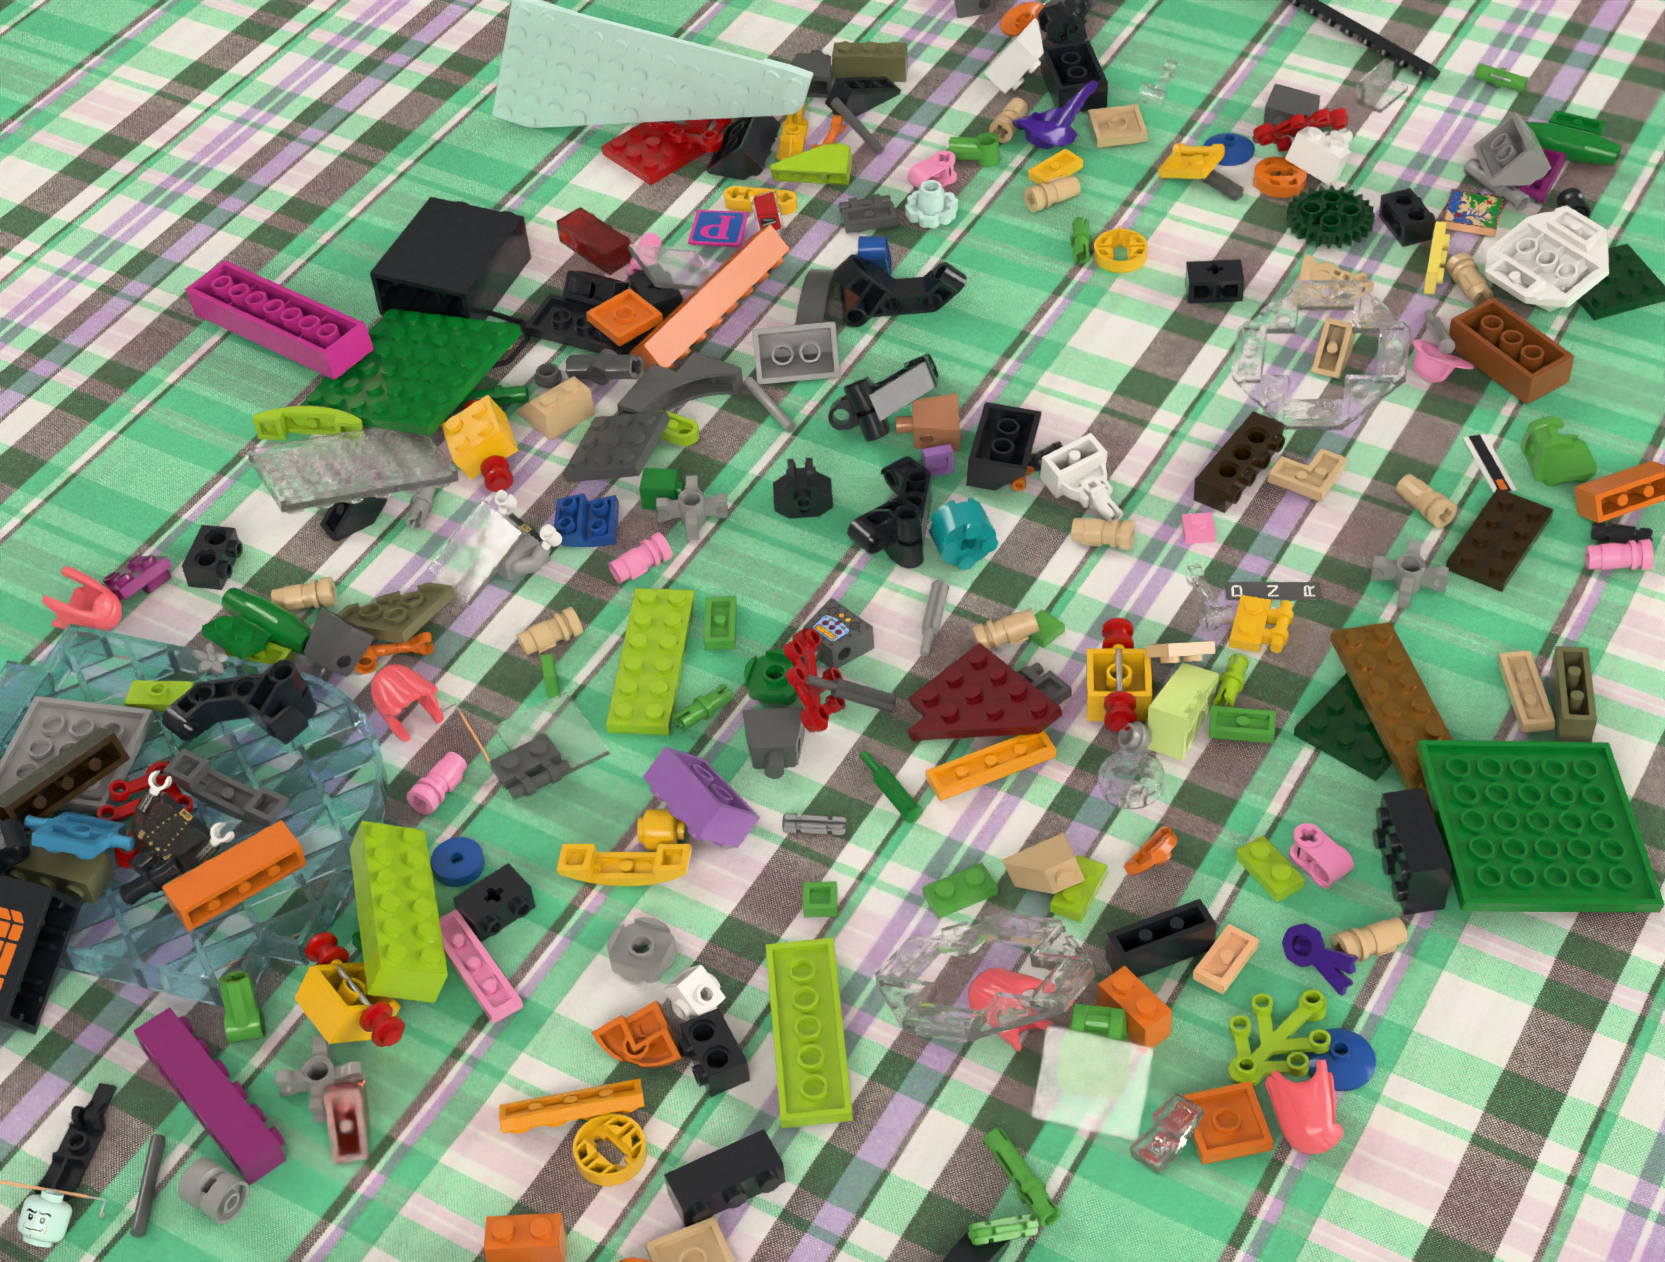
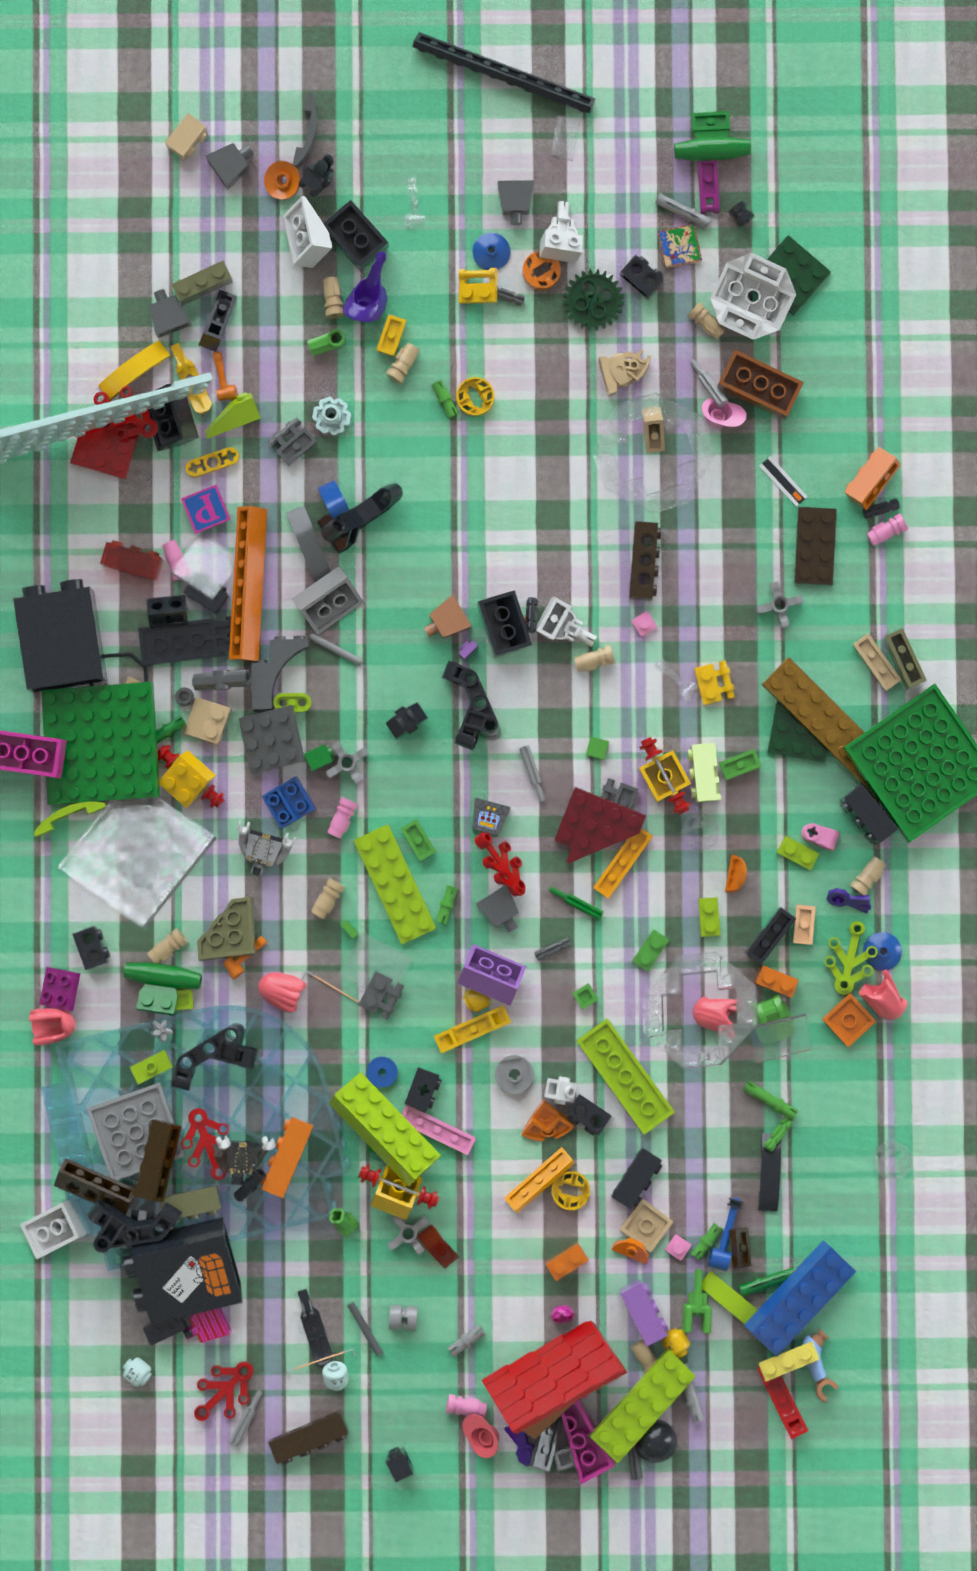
camera: 35 degrees left, 40 degrees up
(78, 834) = (196, 1187): dark azure plate -> none
(211, 1096) = (360, 1271): magenta brick -> none
(224, 793) = (241, 1109): dark grey slope -> none
(335, 645) = (219, 977): dark grey torso -> none
(441, 779) = (338, 1031): bright pink axle -> none
(476, 551) = (249, 869): clear piece -> none
(624, 317) = (206, 631): orange plate -> none
(762, 687) = (463, 856): green plate -> none
(768, 211) = (229, 479): slope -> none
(855, 692) = (528, 857): dark grey axle -> none
(859, 128) = (234, 358): dark grey bar -> none
(873, 402) = (411, 626): black connector -> none
(934, 168) = (313, 385): bright pink piece -> none
(962, 533) = (520, 709): teal brick -> none
(1009, 629) = (581, 767): tan axle -> none
(1045, 866) = (693, 919): tan slope -> none
(1117, 126) = (408, 268): tan plate -> none
(1136, 738) = (694, 813): light grey plate -> none
(1171, 1131) = (825, 1042): clear slope -> none
(1172, 651) = (688, 739): tan plate -> none
(1214, 281) = (561, 401): black brick -> none
(1231, 681) = (719, 736): lime pin -> none
(1268, 134) = (537, 234): red plant -> none
(1274, 590) = (707, 650): dark grey sticker -> none
(1310, 480) = (692, 553): tan plate -> none
(1433, 505) = (763, 538): tan axle -> none
(1437, 258) = (678, 309): light yellow plate -> none
(1512, 154) = (686, 188): light grey slope -> none
(1517, 82) = (639, 88): bright green pin -> none
(1556, 456) = (824, 464): bright green piece -> none

